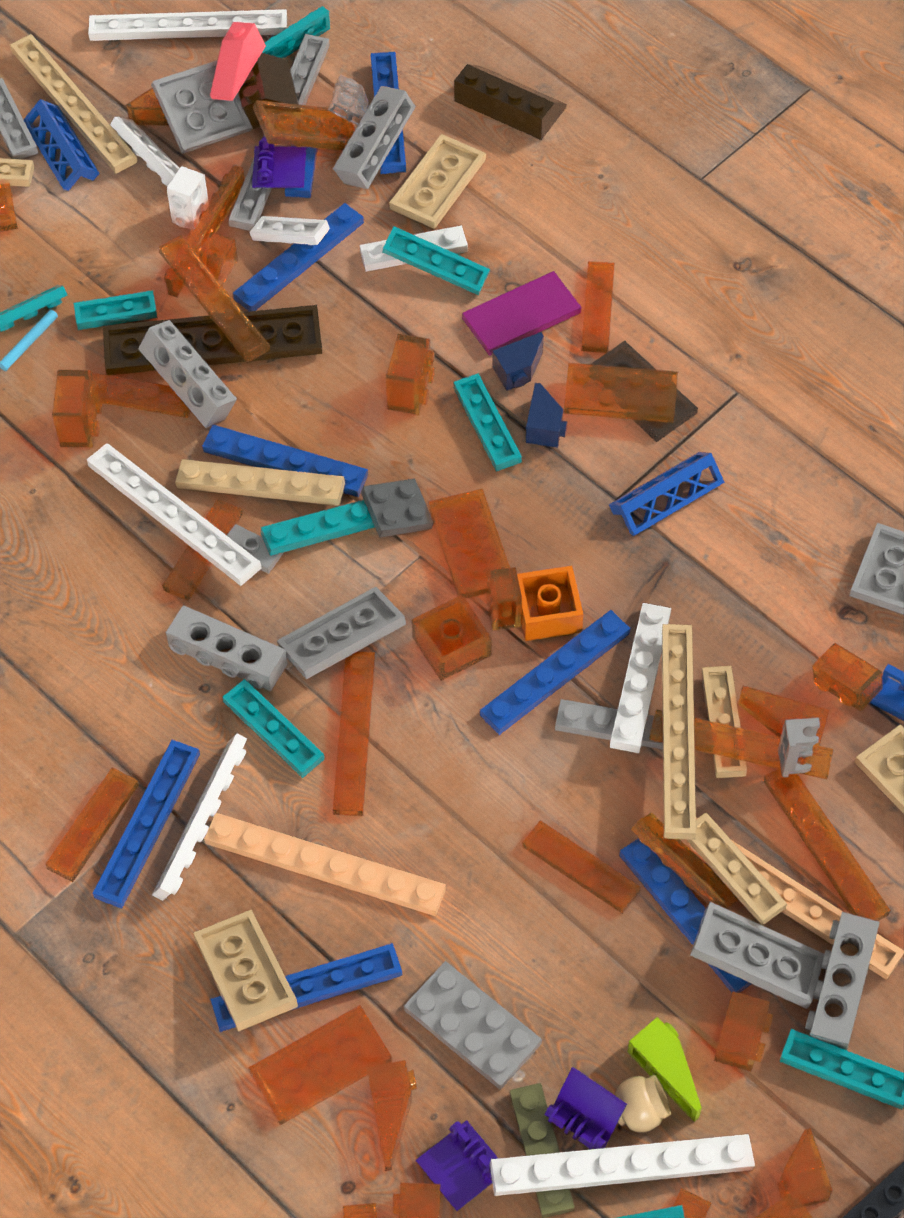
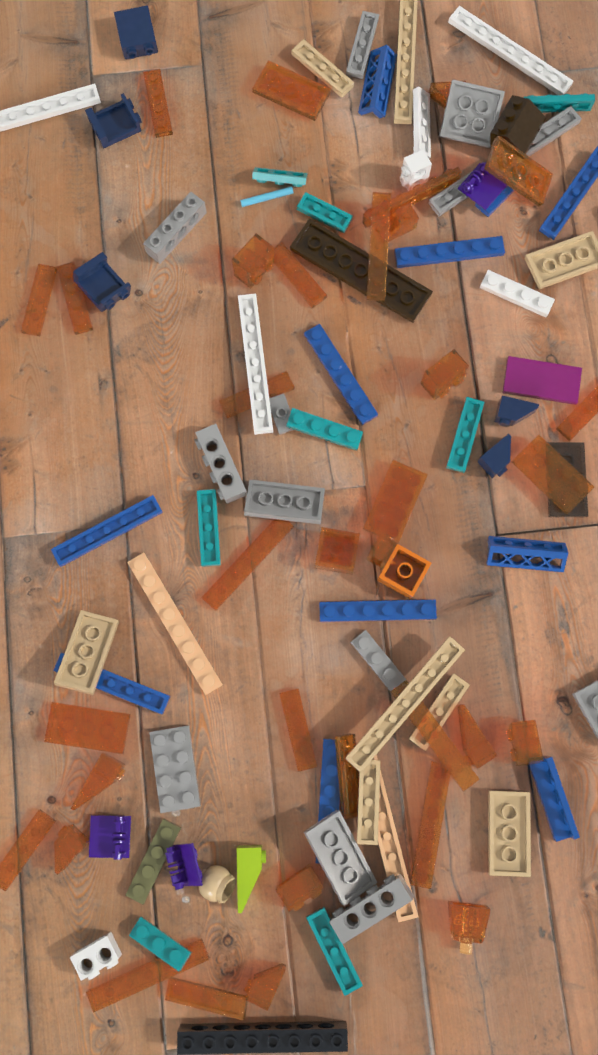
camera: 40 degrees right, 20 degrees up
(92, 824) = (80, 510): clear orange plate -> none
(187, 373) = (326, 284): light grey brick -> none
(196, 828) = (126, 554): white plate -> none
(236, 59) = (511, 98): coral slope -> none
(260, 482) = (316, 379): tan plate -> none
(289, 230) = (455, 232): white plate -> none
(349, 100) = (559, 171): clear wing -> none
(374, 137) = (551, 206): light grey brick -> none
(397, 507) = (374, 449): dark grey plate -> none
(436, 260) = (520, 312): teal plate -> none
(621, 1164) = (181, 906): white plate -> none
(640, 679) = (416, 652): white plate -> none
(796, 742) = (454, 768): light grey hinge -> none

